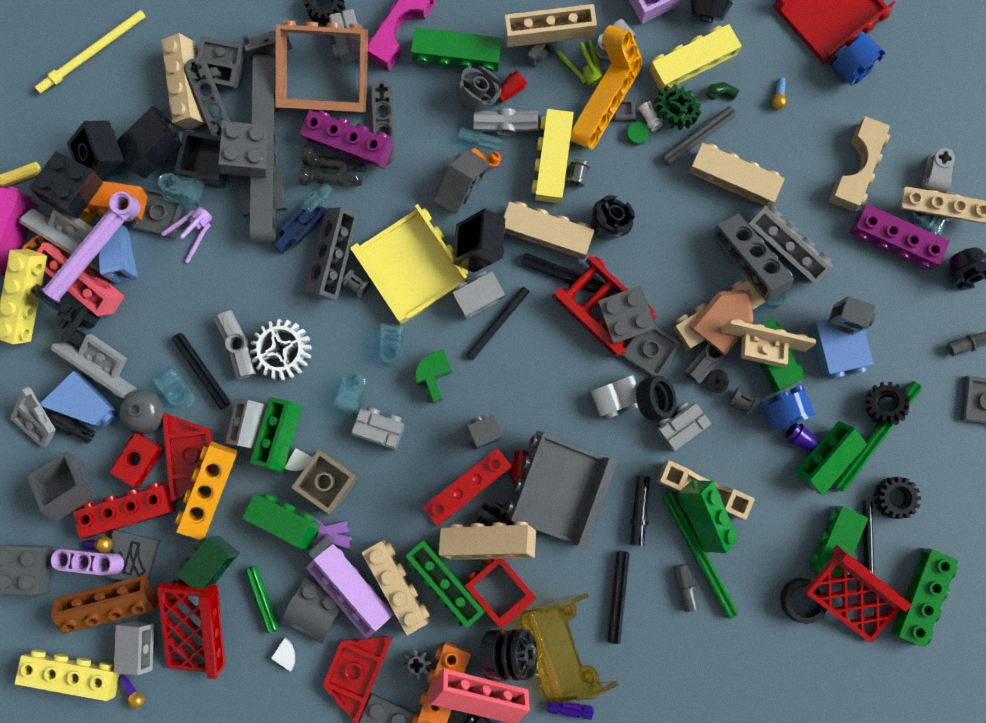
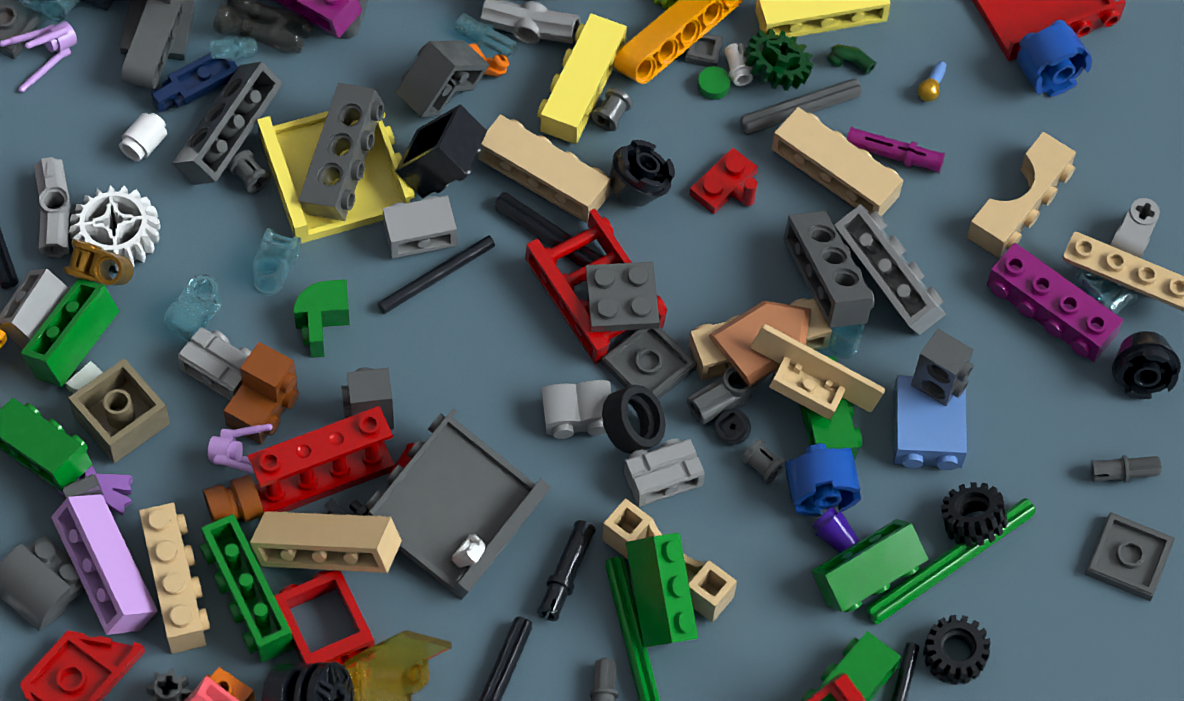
camera: 10 degrees right, 20 degrees down
(274, 384) = (93, 264): none -> pearl gold piece
(278, 277) = (143, 136): none -> white brick
(402, 489) = (228, 452): none -> lavender plant
(406, 224) = (337, 135): none -> dark grey brick
(413, 446) = (265, 391): none -> dark orange brick
(417, 525) = (238, 499): none -> dark orange wheel
(578, 518) = (469, 551): none -> white tile
(665, 204) = (727, 181): none -> red plate
(765, 152) = (896, 150): none -> magenta pin

